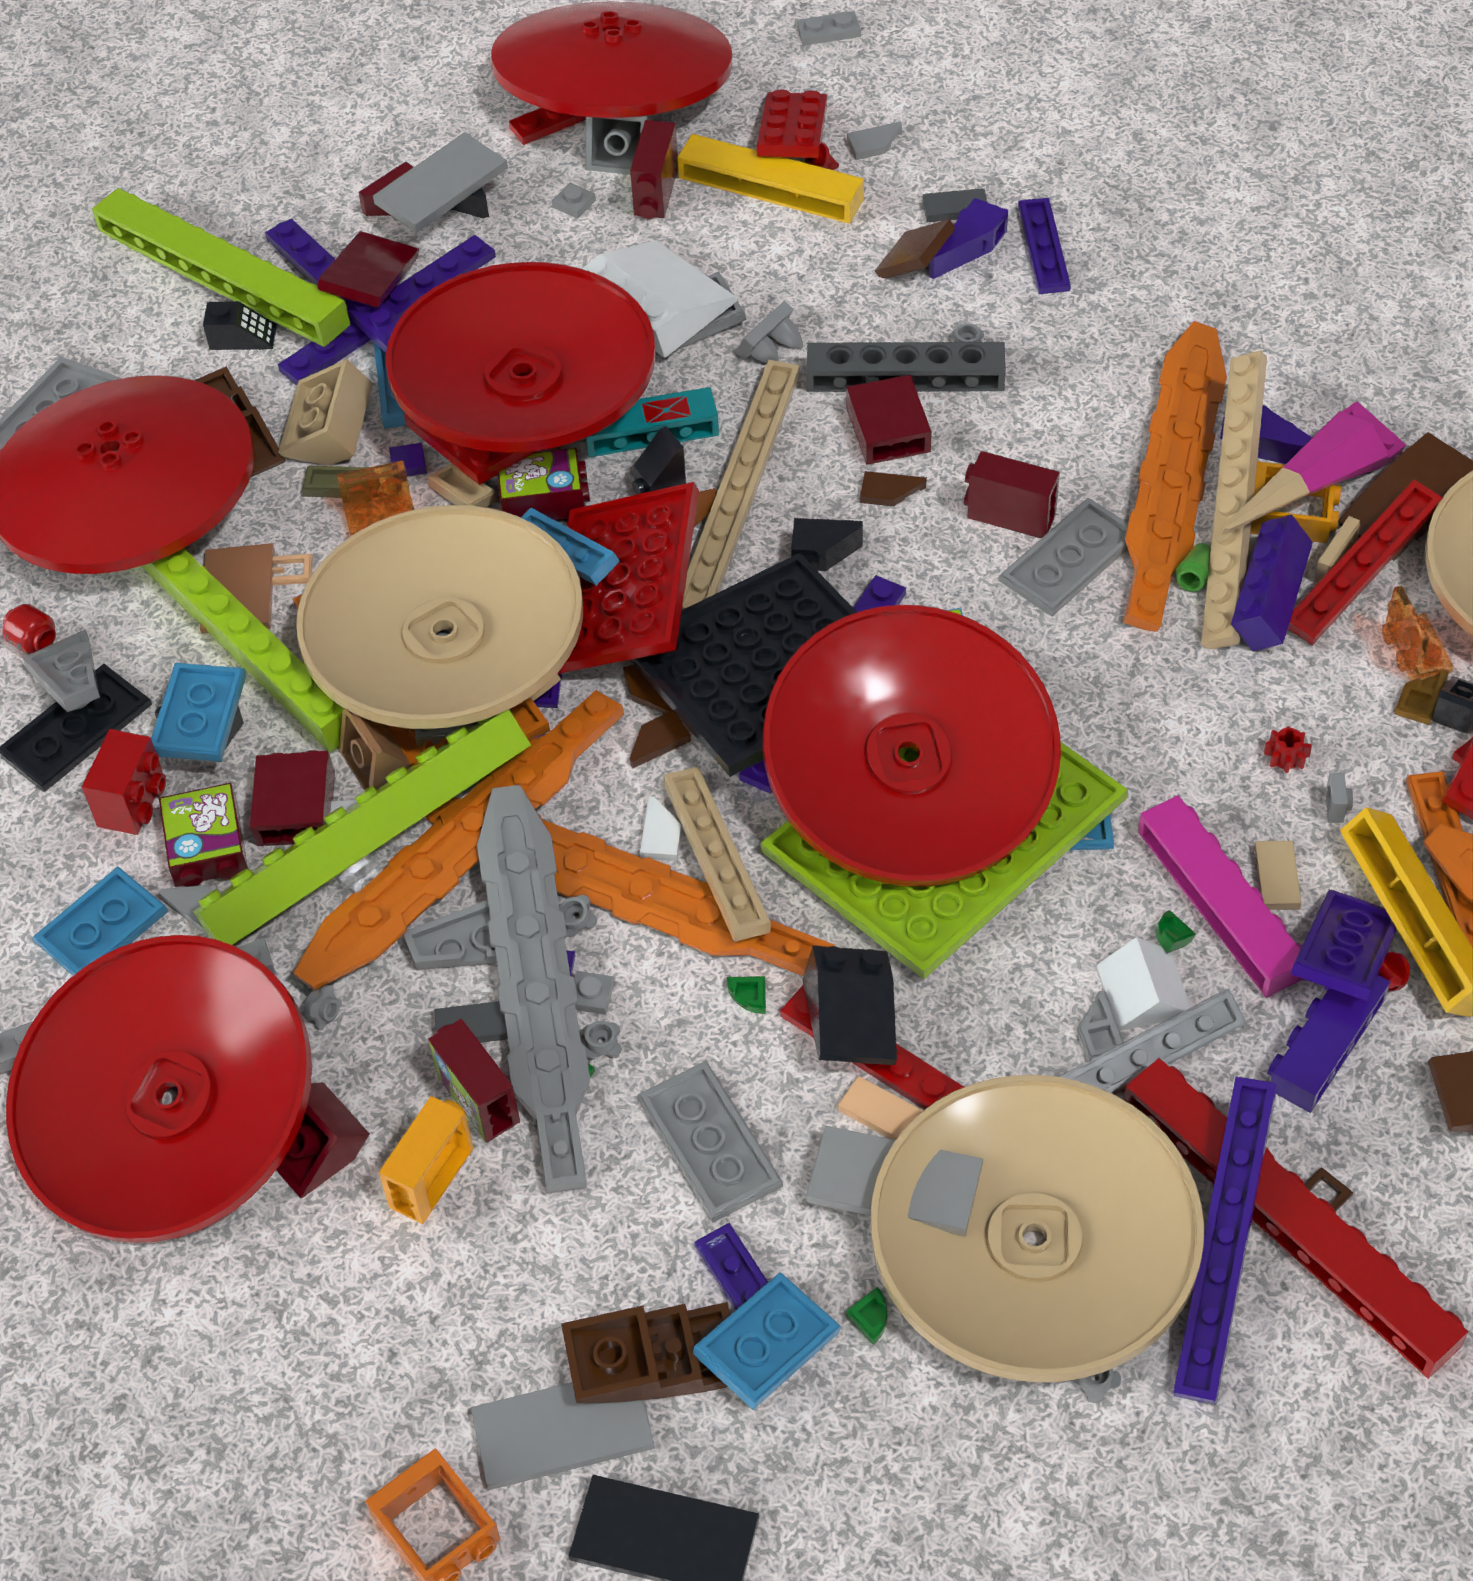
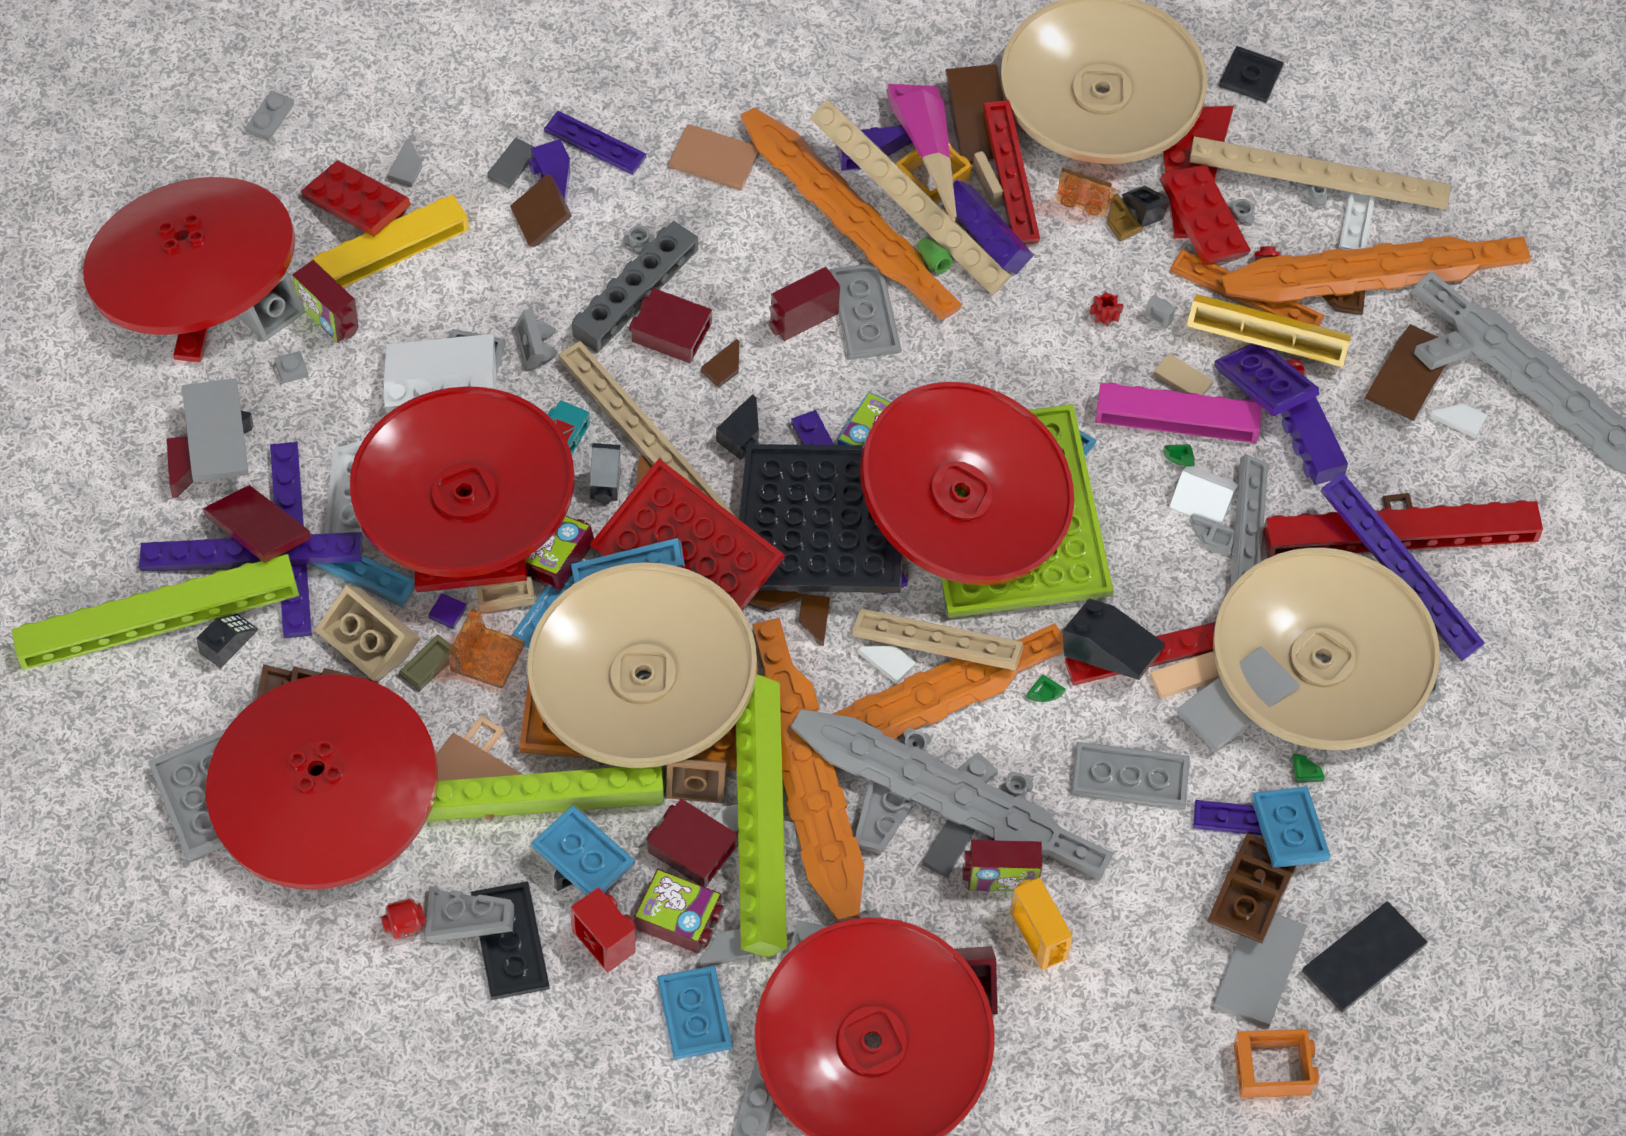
camera: 60 degrees left, 5 degrees up
(1123, 335) = (714, 157): none -> nougat tile

